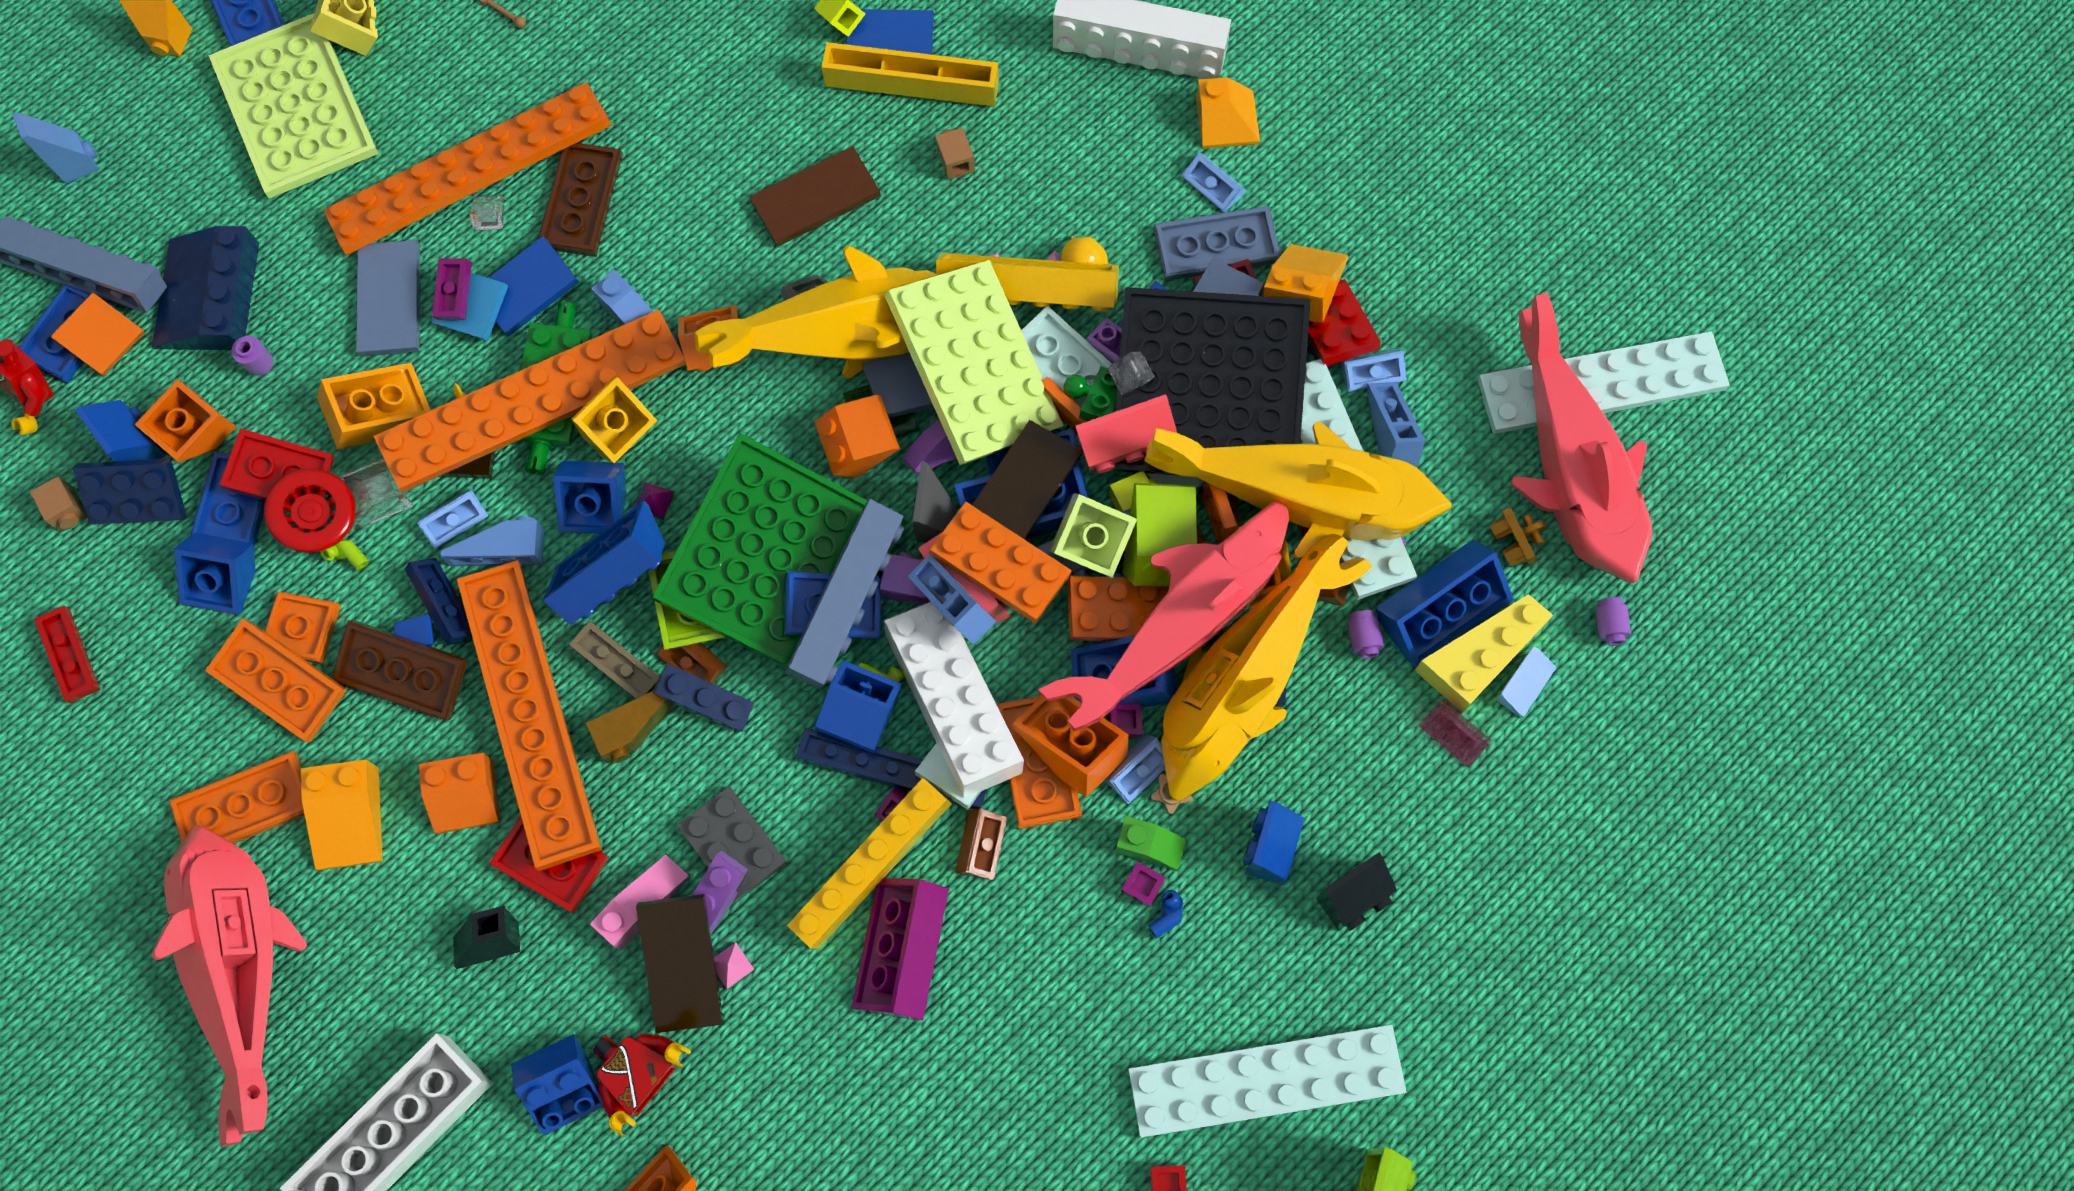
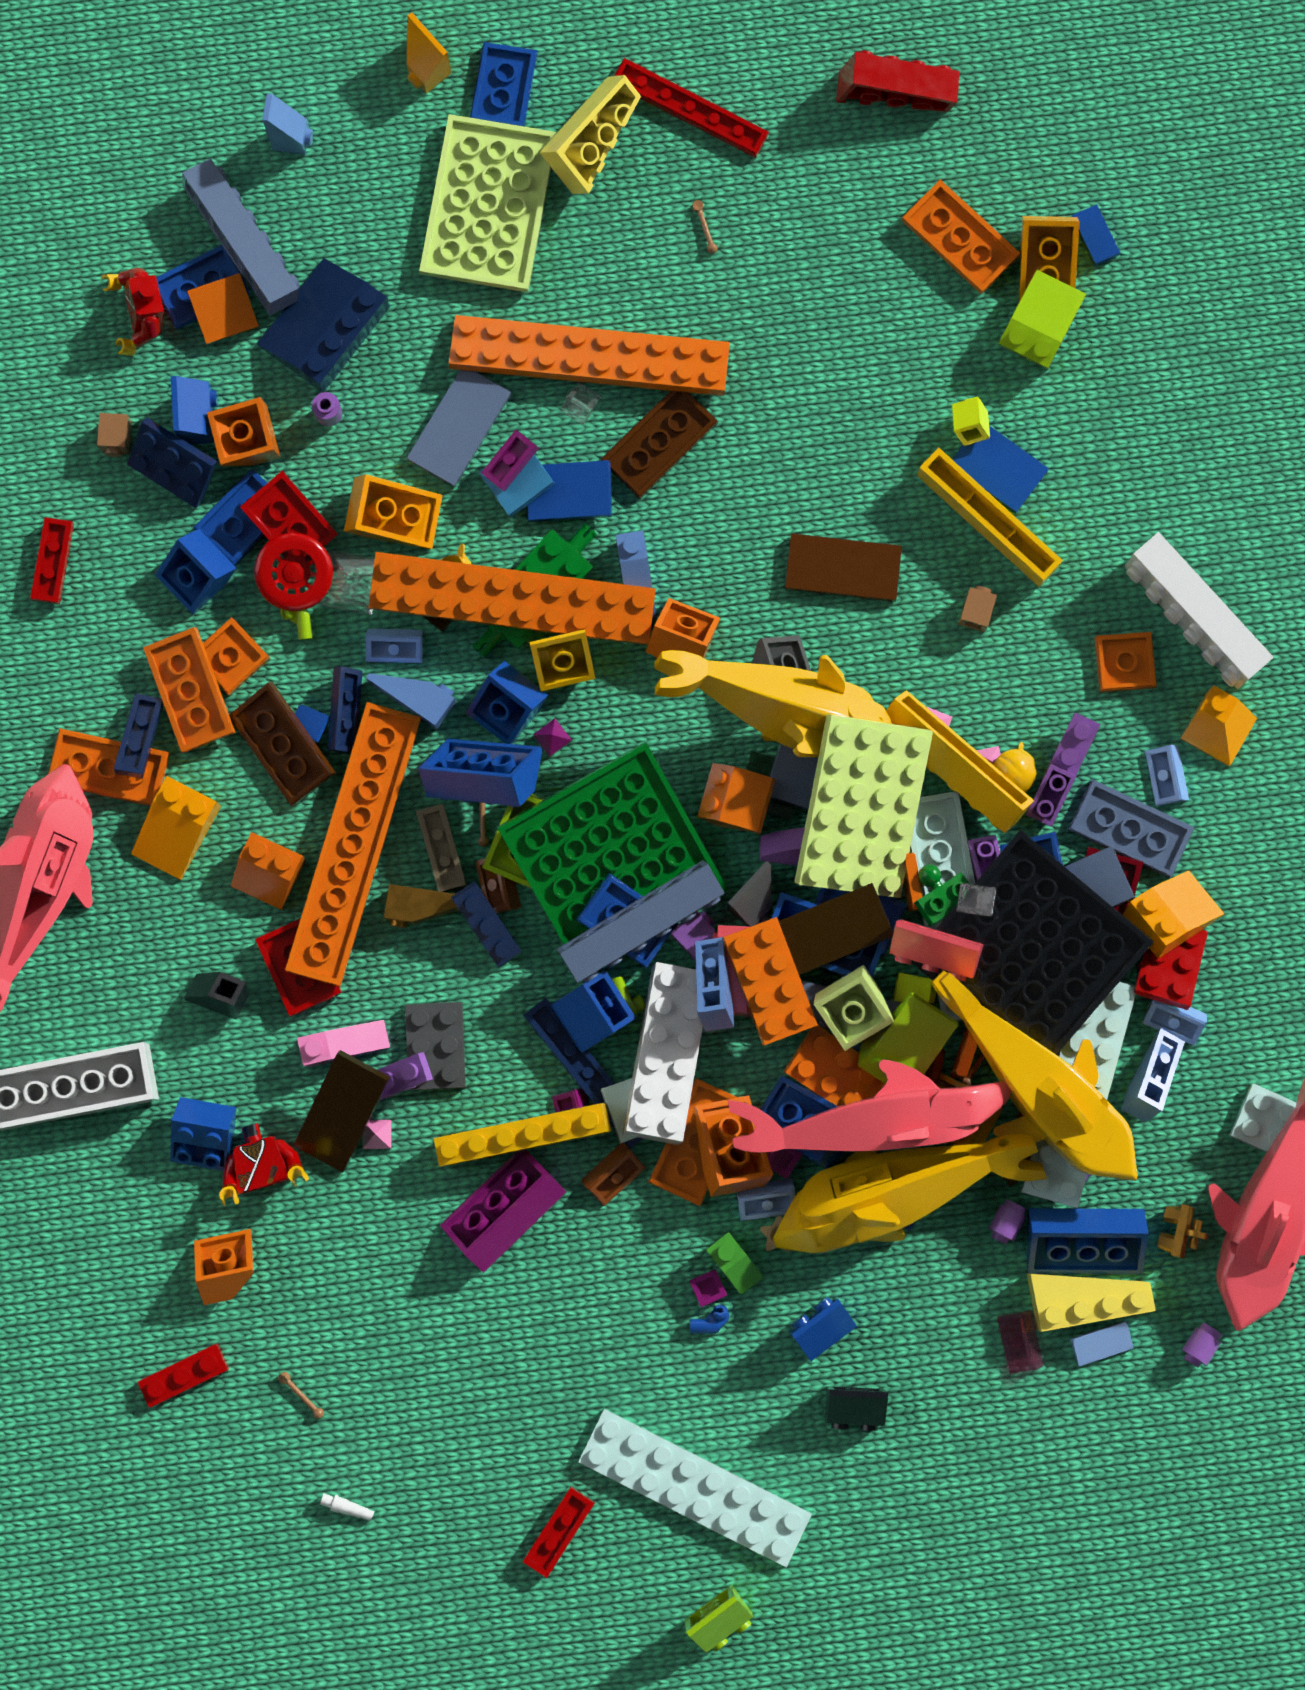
camera: 35 degrees right, 10 degrees up
(252, 753) = (138, 736): none -> dark blue plate
(651, 630) = (483, 840): none -> medium nougat hinge
(1110, 117) = (1125, 662): none -> orange tile
(1123, 229) = (1063, 769): none -> medium lavender slope

